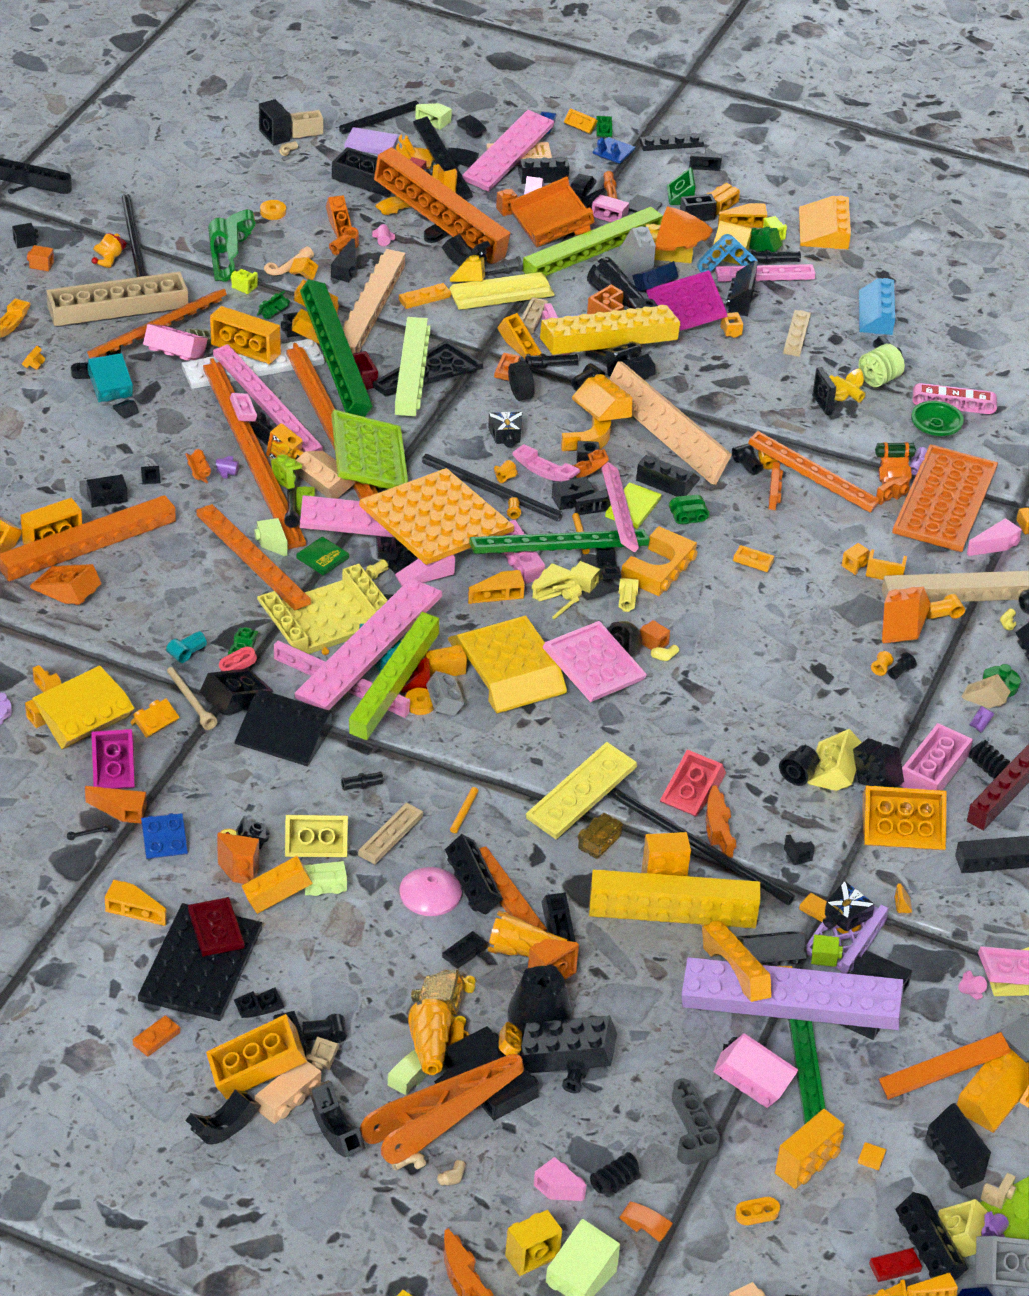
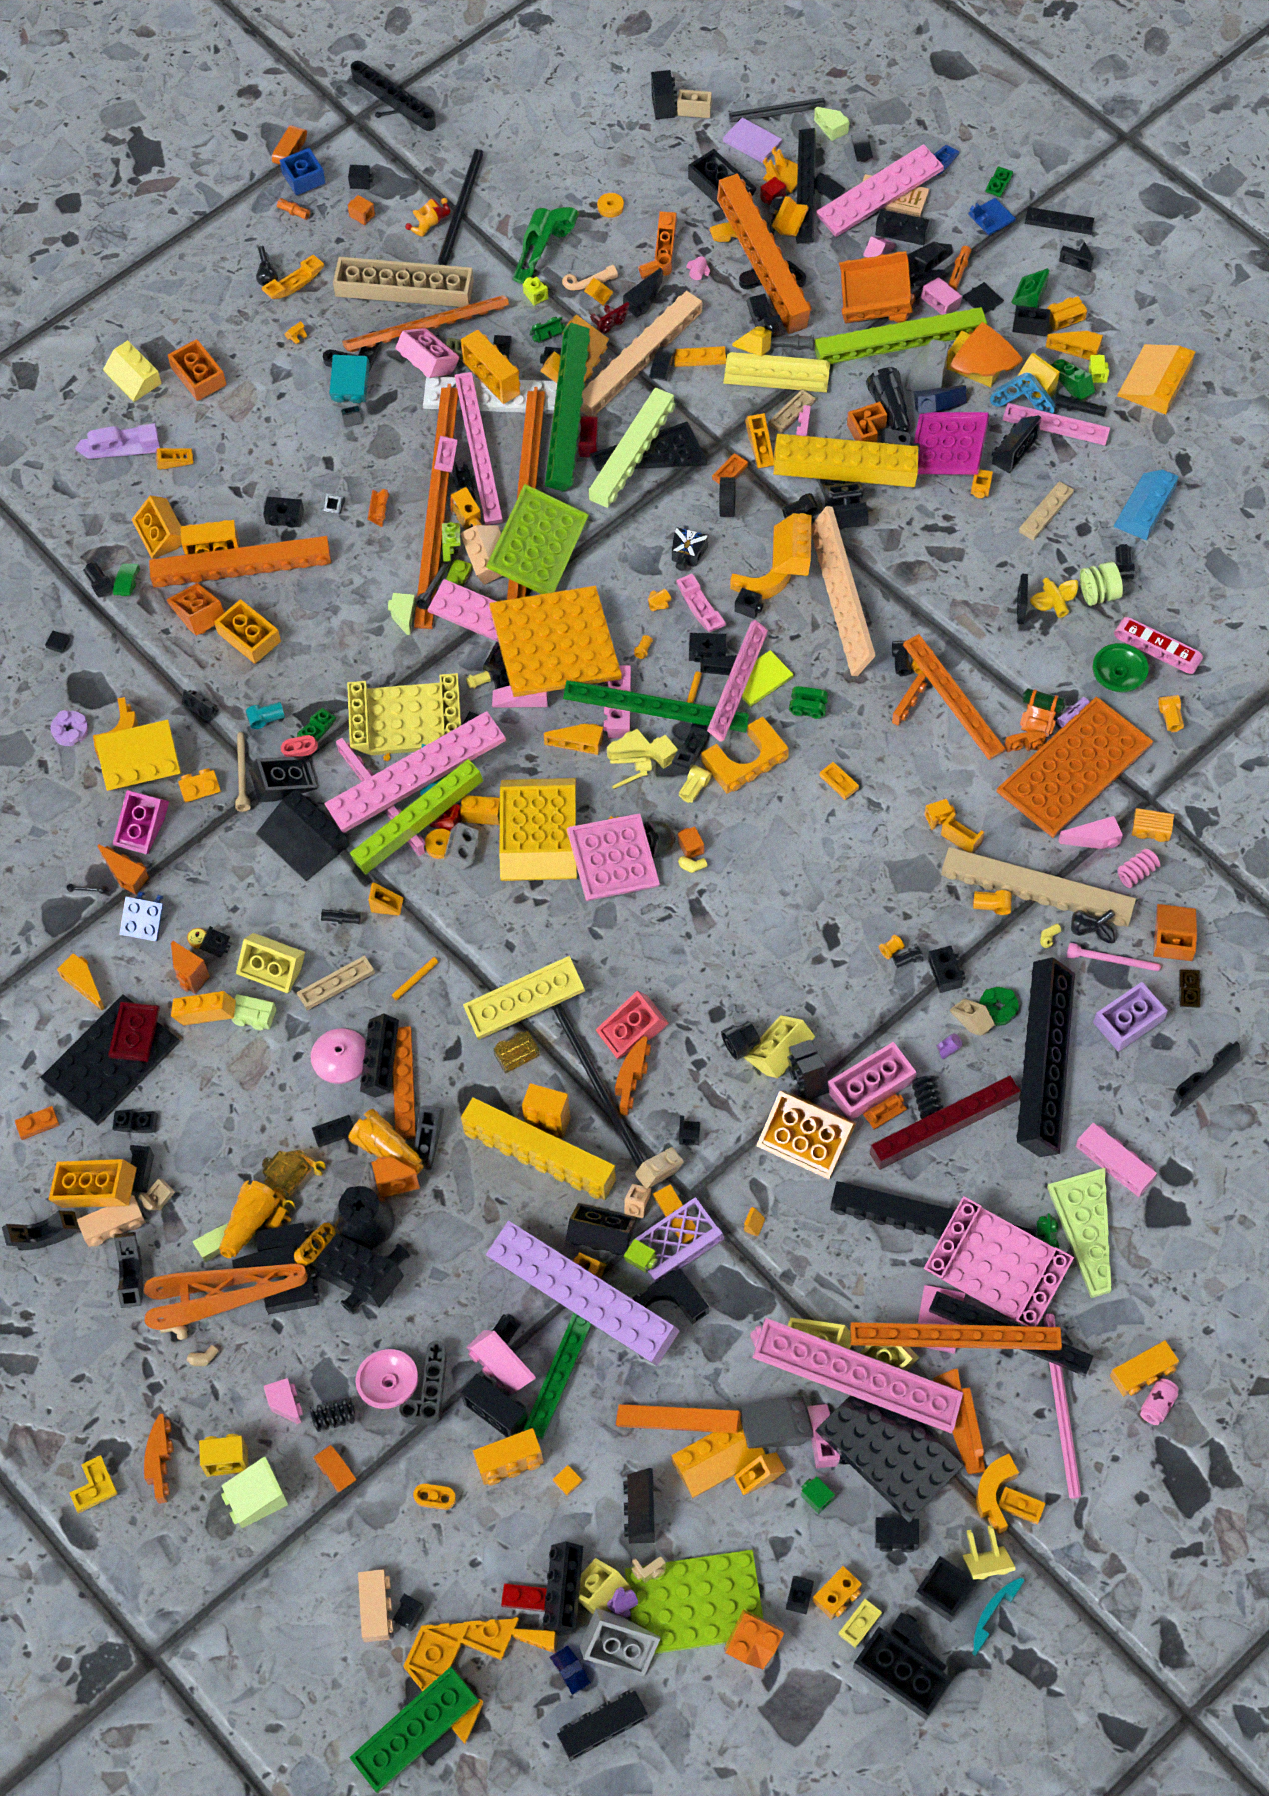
camera: 30 degrees right, 20 degrees up
(114, 657) = (195, 703): none -> black hinge
(131, 585) = (247, 631): none -> light orange brick
(227, 466) = (405, 515): medium lavender piece -> none
(253, 557) = (373, 631): orange plate -> none
(287, 147) = (663, 127): tan arm -> none
(322, 556) = (439, 647): green tile -> none
(332, 1029) = (177, 1171): black piece -> none
(333, 280) = (612, 317): none -> dark red plate
(396, 306) = (661, 364): none -> black slope
(396, 757) = (384, 901): none -> light orange slope
(492, 487) = (637, 615): black axle -> none
(503, 201) = (840, 254): orange brick -> none
(543, 360) = (767, 474): black pin -> none
(580, 121) = (976, 169): light orange plate -> none
(595, 462) = (745, 618): orange slope -> none
(651, 1126) = (384, 1368): none -> bright pink dish
(665, 476) = (811, 653): black slope -> none
(750, 973) = (546, 1242): light orange arch -> none
(769, 1112) = (494, 1406): none -> black brick
(788, 916) = (636, 1200): none -> light nougat bracket
(795, 879) = (659, 1167): none -> tan brick
(847, 908) = (683, 1219): torso -> none
(904, 614) = (942, 900): orange slope -> none
(939, 665) = (943, 969): none -> black brick
(960, 782) = (885, 1111): none -> orange hinge
(995, 437) = (1170, 708): none -> light orange piece

